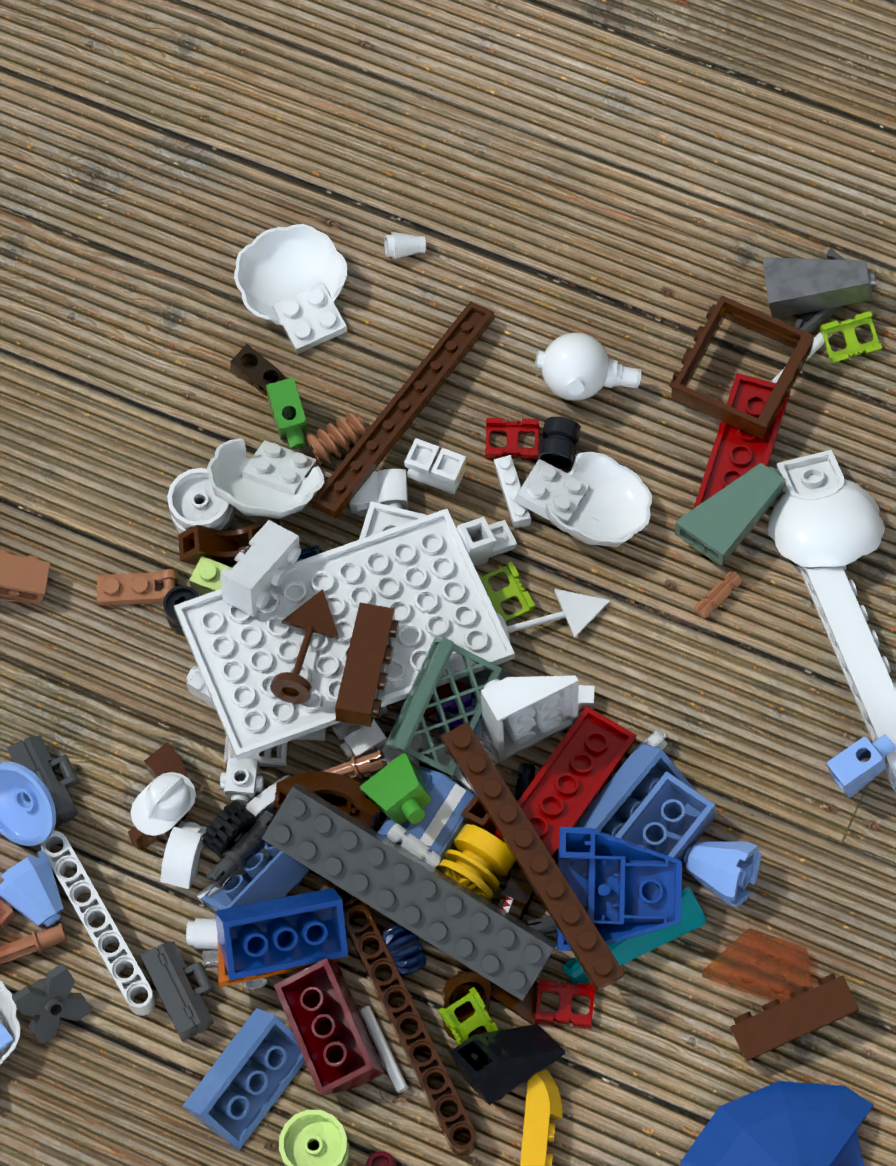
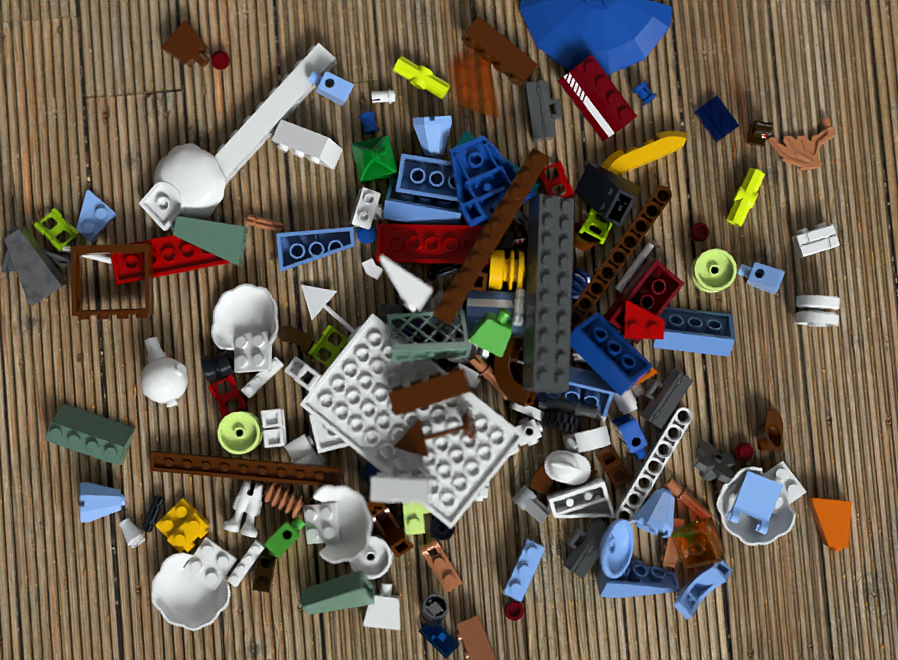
camera: 120 degrees left, 20 degrees up
(22, 649) = (514, 610): none -> dark red tile
(41, 1057) = (743, 452): none -> dark red plate
(43, 1108) = (770, 434): none -> reddish brown piece
(47, 539) = (439, 639): none -> clear blue tile
(66, 684) = (523, 569): none -> light blue brick
(85, 543) = (433, 610): none -> black wheel
(106, 806) = (581, 500): none -> white wedge
(123, 489) = (385, 611): none -> white torso
(127, 874) = (613, 467): none -> reddish brown slope
(145, 738) = (527, 501): none -> light grey piece
(156, 911) = (627, 429): none -> blue torso
(176, 439) = (338, 594): none -> sand green slope
(284, 356) = (246, 563): none -> white piece
(295, 998) = (642, 323): none -> red wing
(356, 394) = (249, 504): none -> white piece
(376, 308) = (183, 526): none -> yellow plate
(414, 281) = (153, 513): none -> black axle
(455, 423) = (229, 436): none -> yellowish green wheel
(467, 223) = (99, 501): none -> light blue cone
(540, 557) = (290, 334): none -> dark brown leg
(556, 255) = (90, 434): none -> sand green slope
(631, 714) = (366, 235): none -> blue plate
(653, 1121) = (597, 98): none -> dark red slope
(654, 633) = (307, 246): none -> medium blue wedge
(666, 725) = (364, 208): none -> white bracket
(678, 1031) = (538, 109): none -> dark grey piece
(729, 773) = (374, 159): none -> green piece
(785, 794) = (369, 123): none -> blue bush
(796, 695) = (307, 144): none -> white wedge
(813, 897) = (421, 77): none -> neon yellow piece
(814, 833) = (383, 96): none -> white pin
(845, 392) = (94, 216): none -> light blue wing

